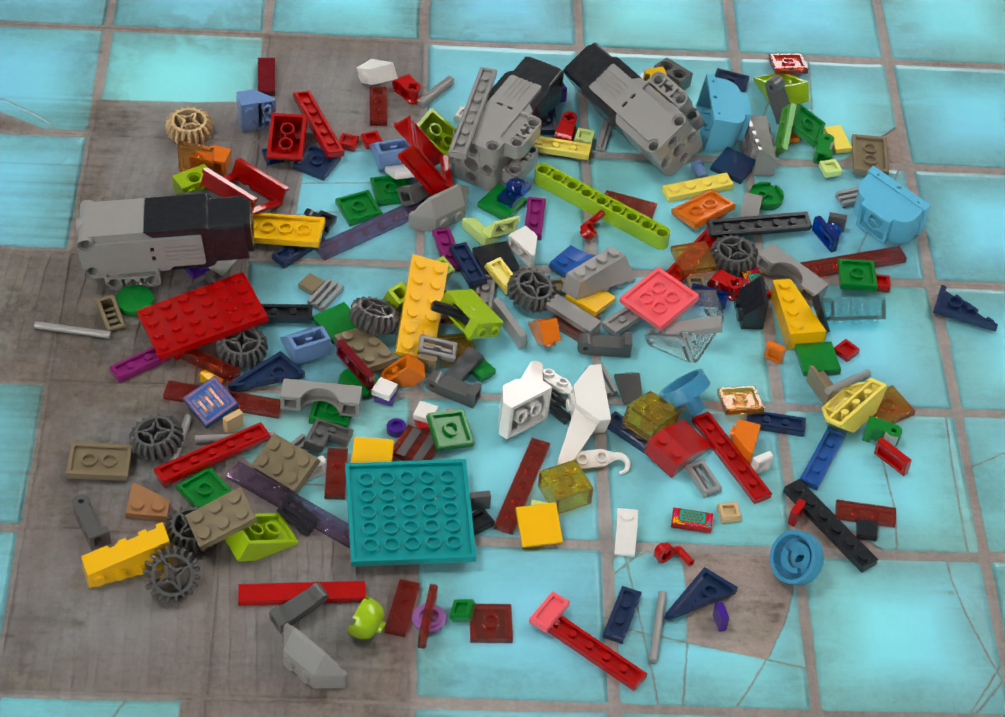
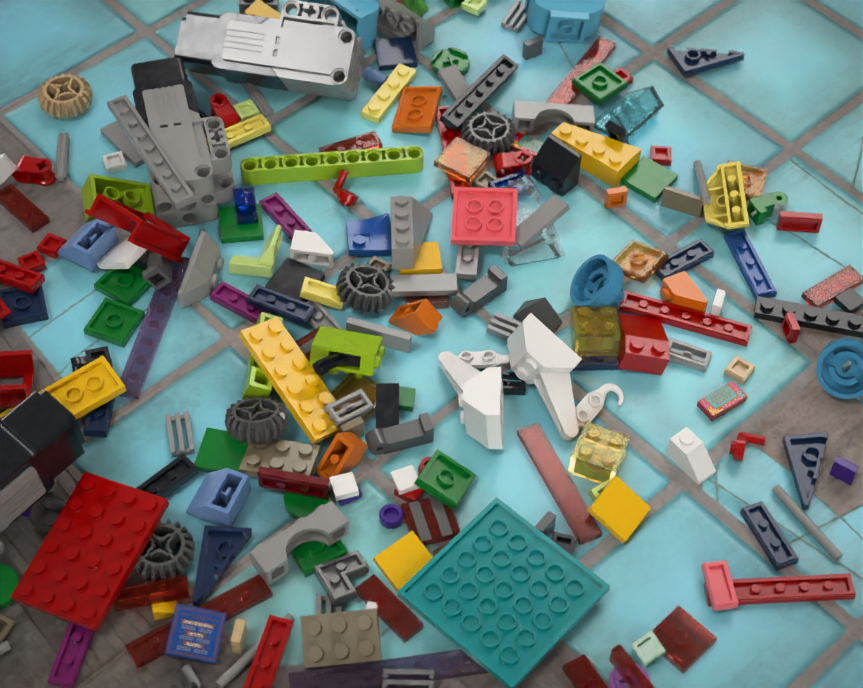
camera: 40 degrees left, 5 degrees up
(310, 284) = (154, 433): dark tan tile -> none
(477, 53) = (65, 96): none -> tan gear
(827, 233) = (536, 63): clear blue tile -> none

